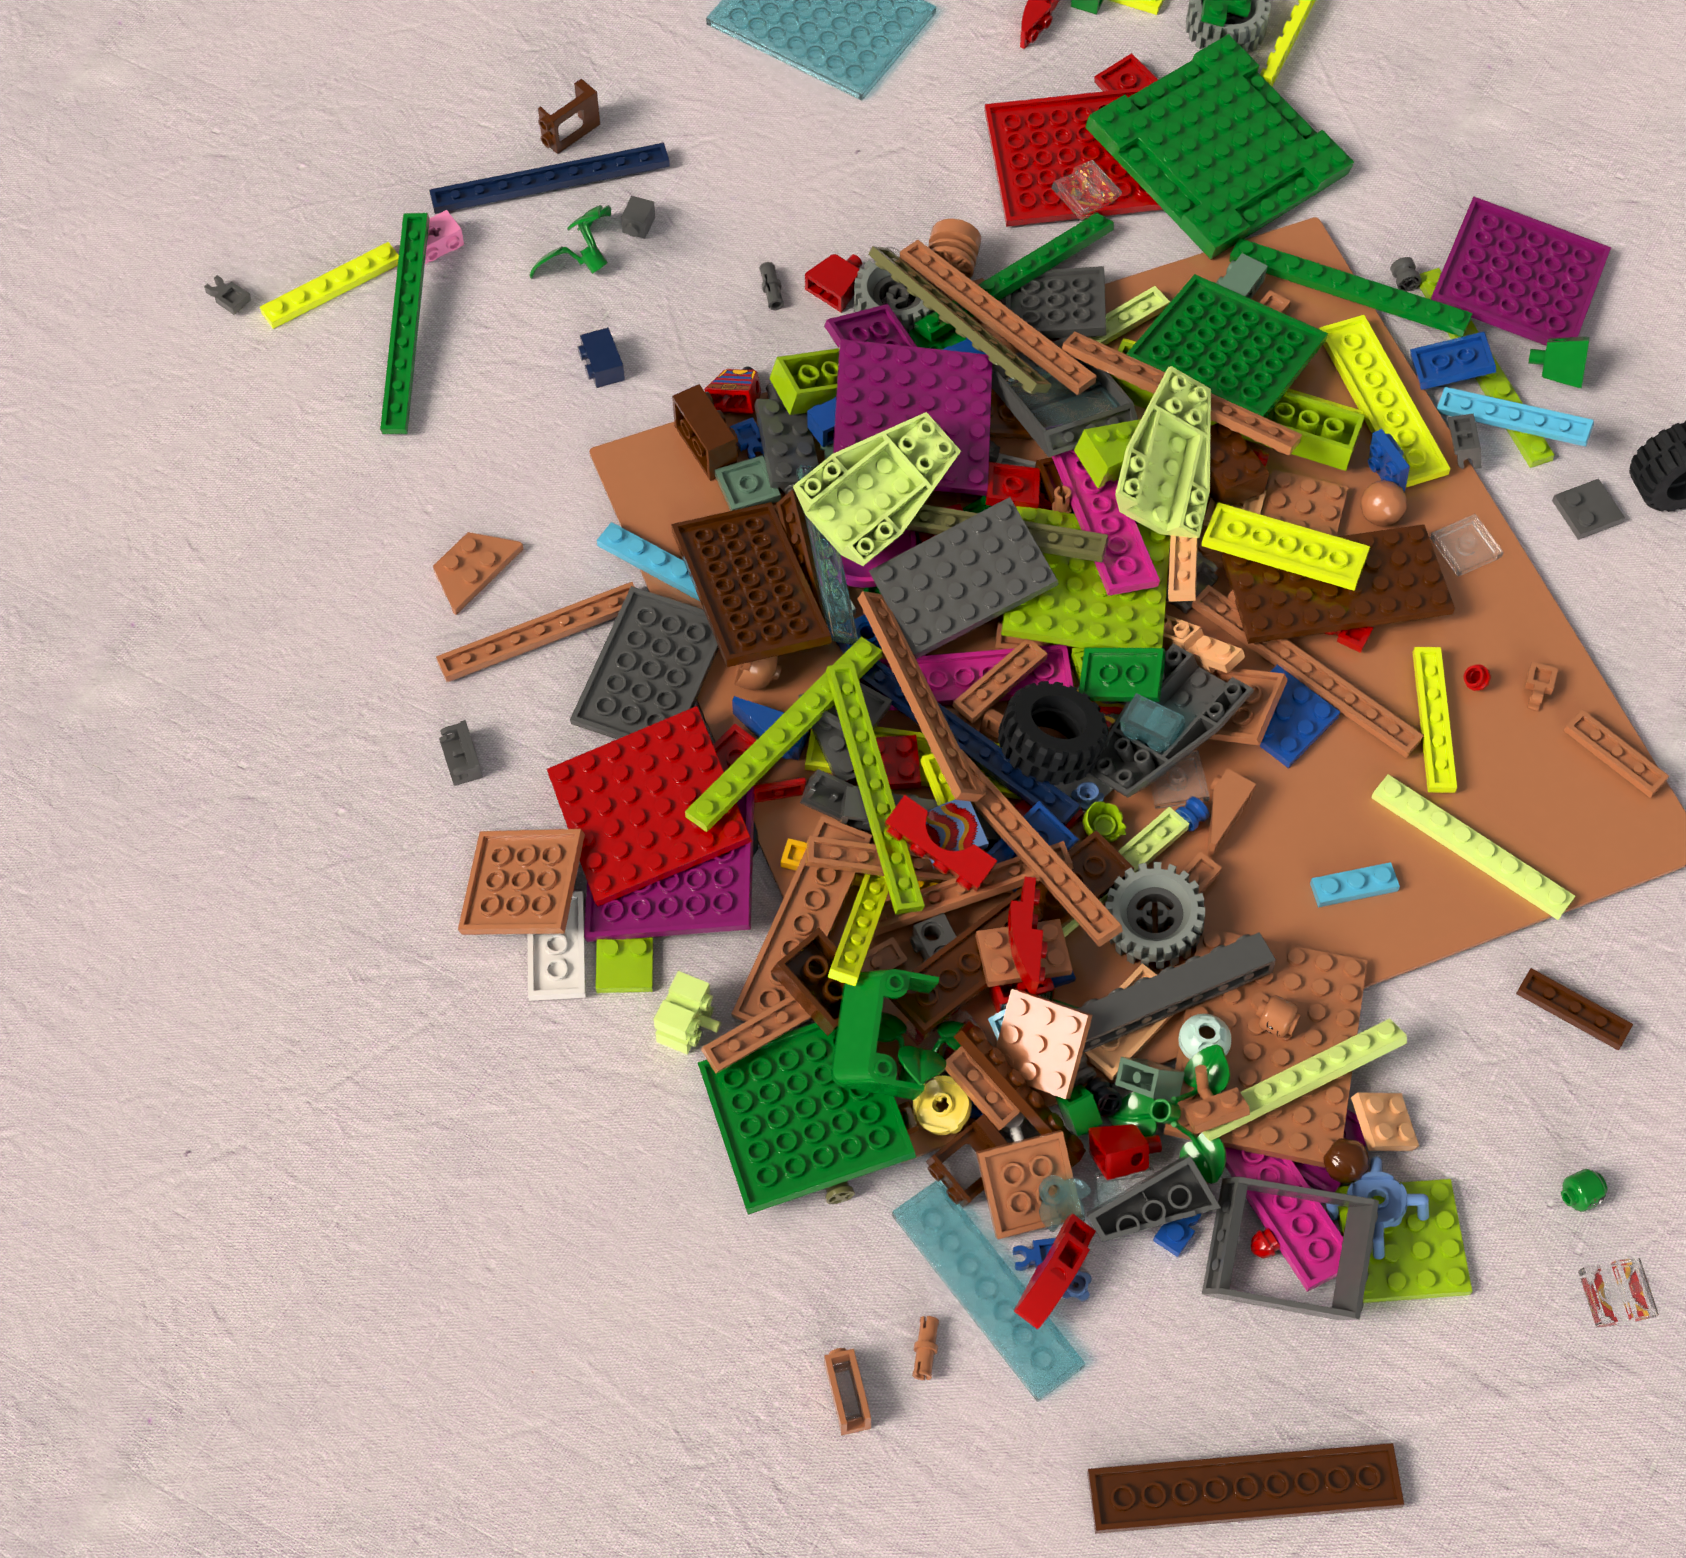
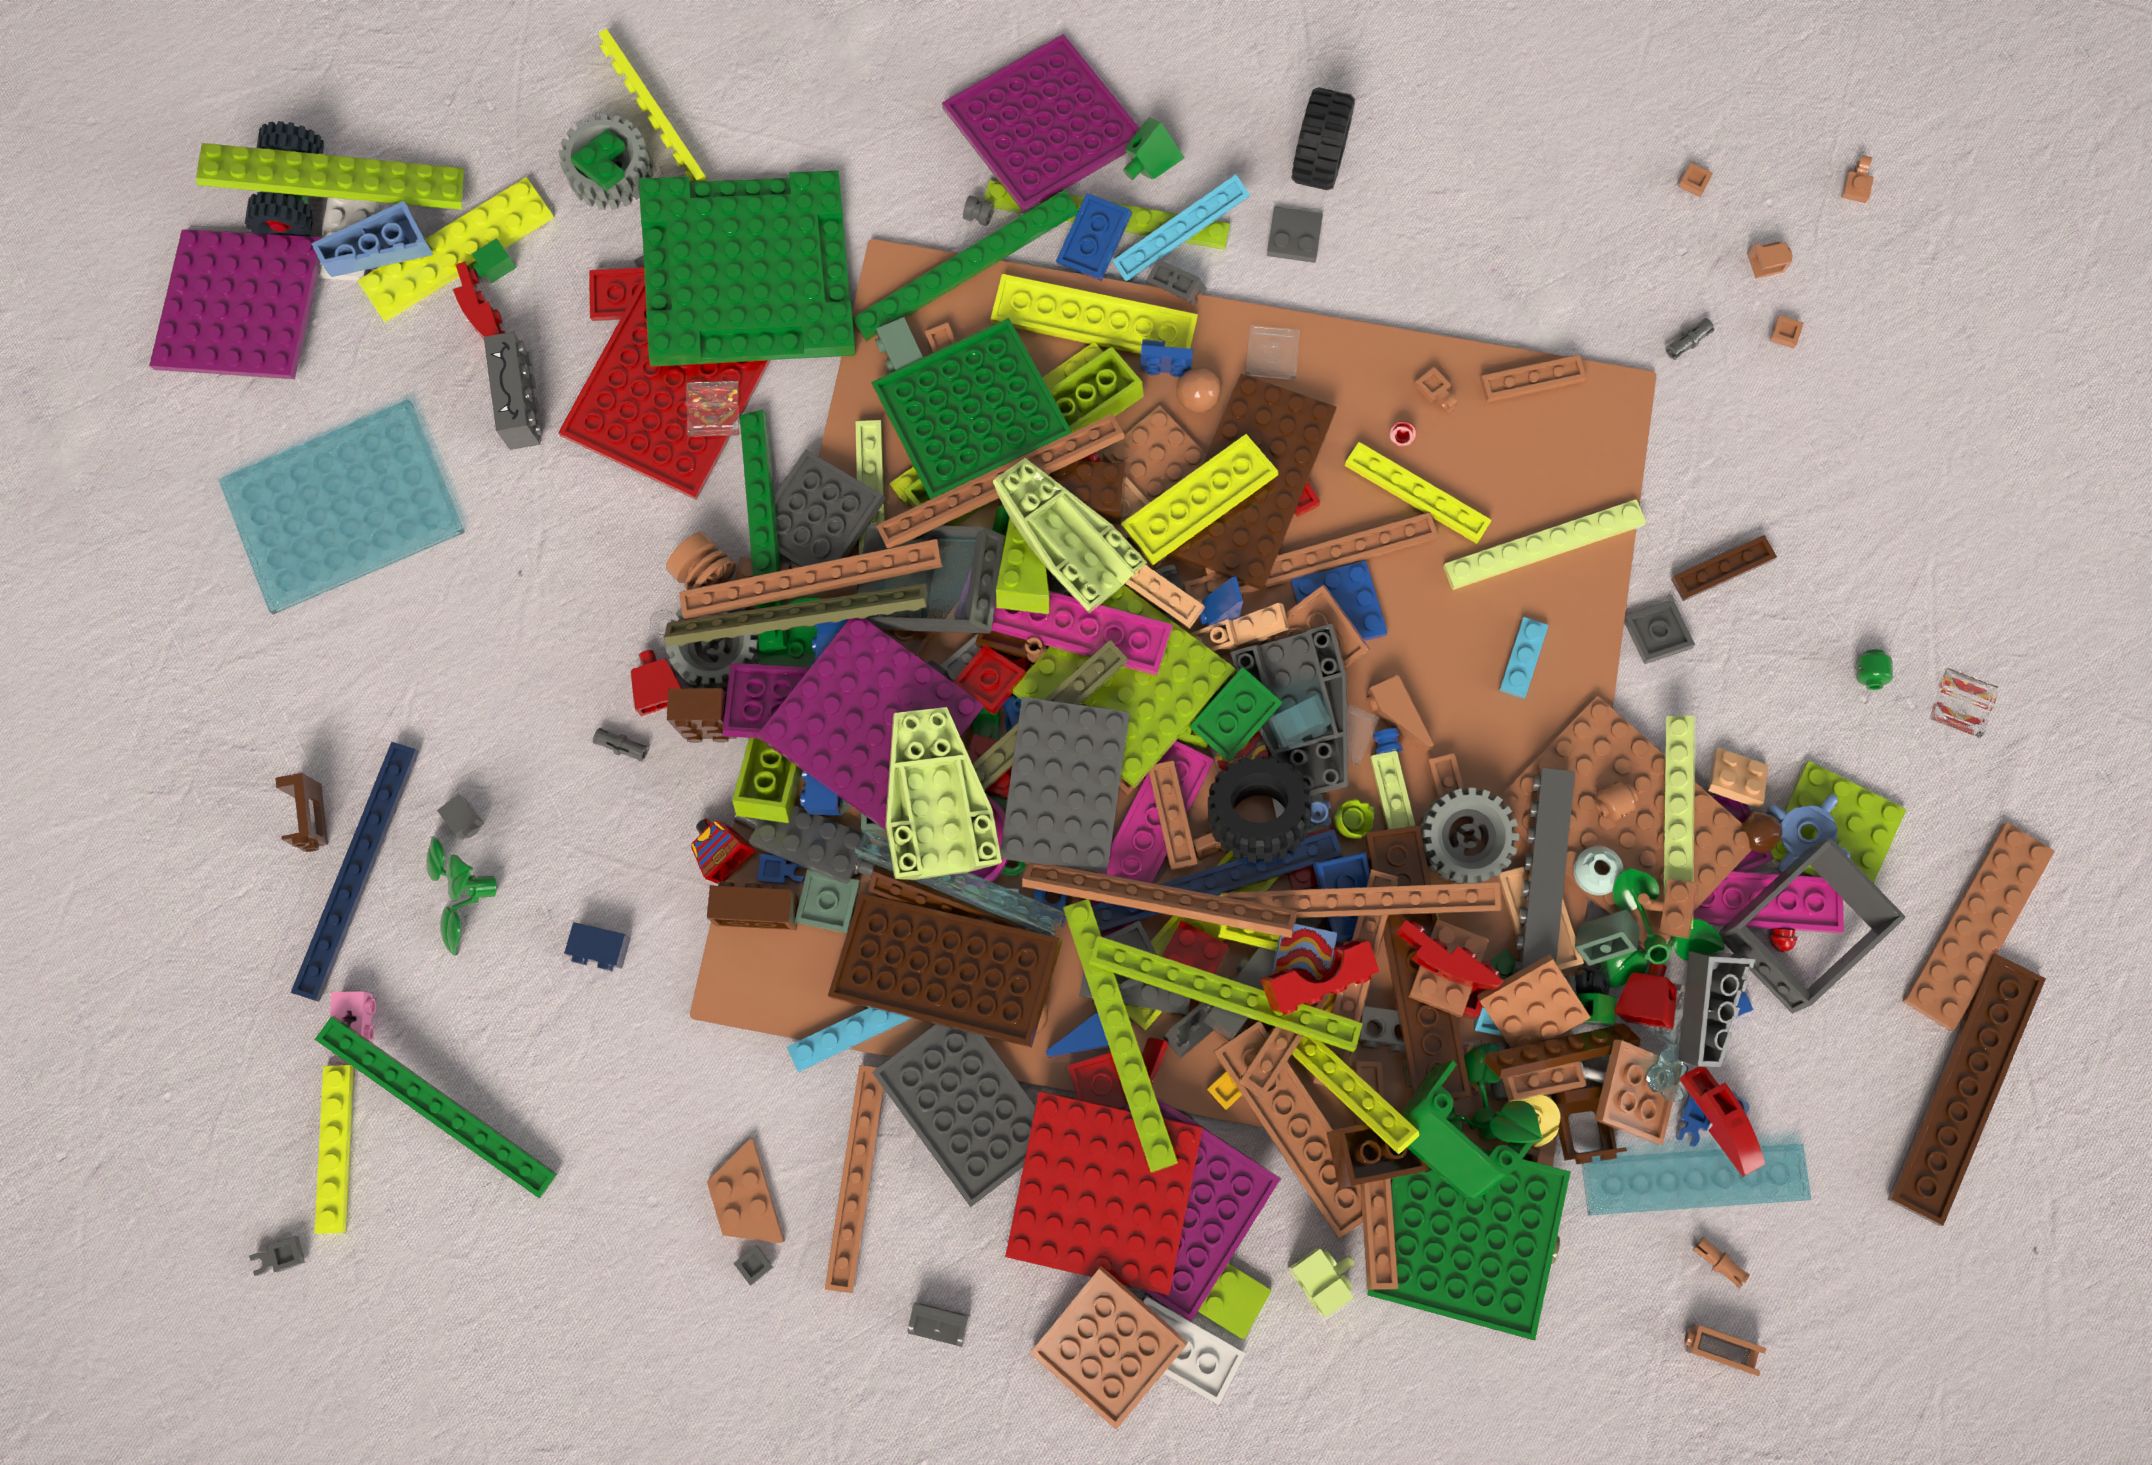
camera: 55 degrees left, 15 degrees up
(422, 600) = (753, 1265): none -> dark grey plate
(828, 298) = (698, 713): none -> reddish brown brick
(993, 58) = (512, 390): none -> dark grey brick
(1212, 614) = (1222, 603): none -> blue slope
(1413, 1420) = (1978, 926): none -> nougat plate
(1469, 986) = (1659, 632): none -> dark grey plate

